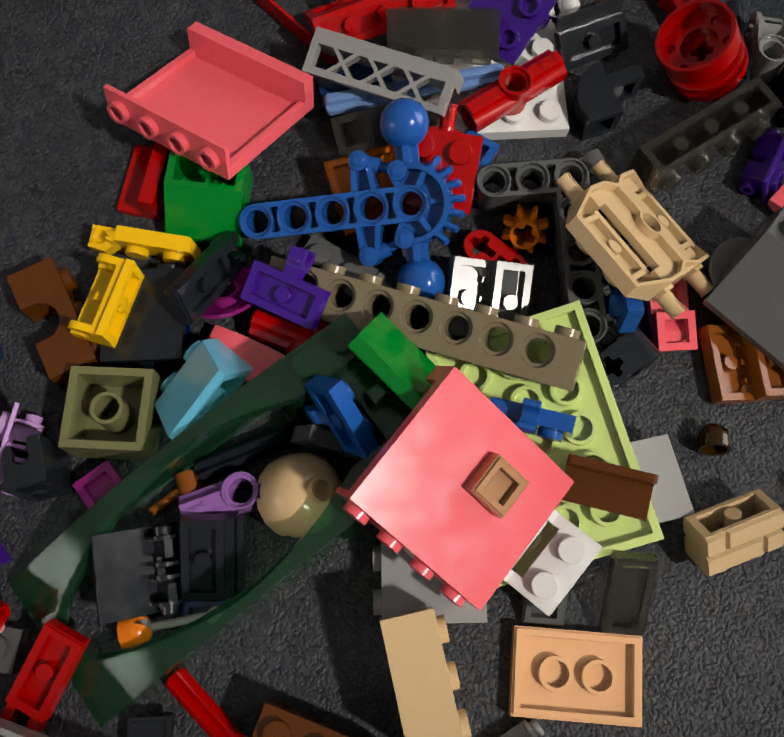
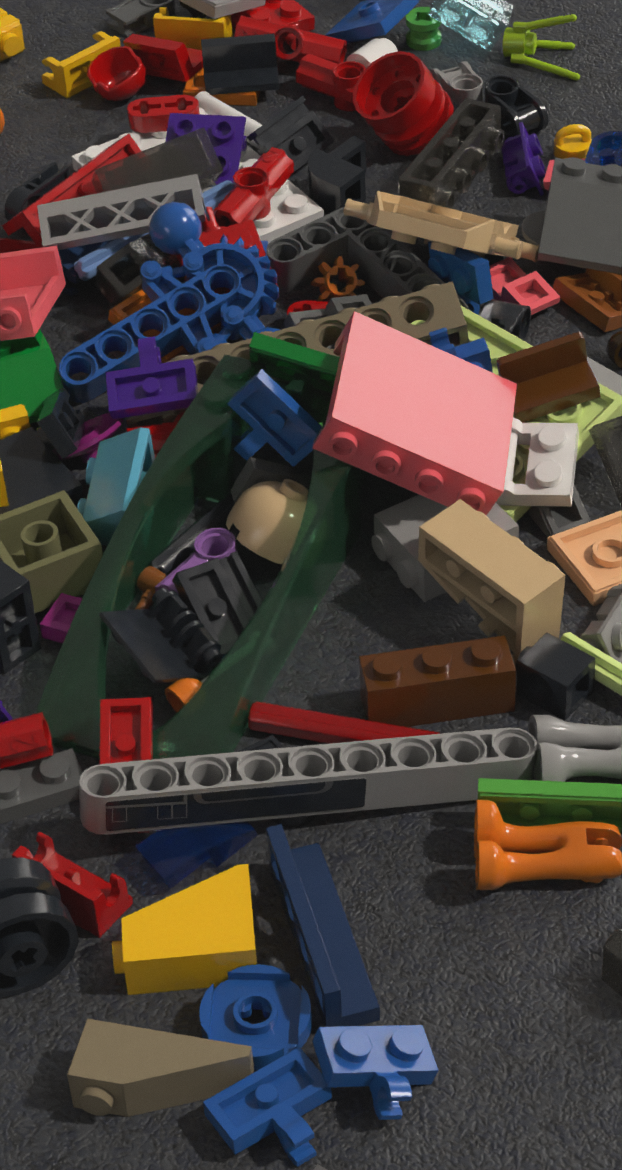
camera: 25 degrees left, 30 degrees down
(496, 485) = (450, 387): medium nougat tile -> none

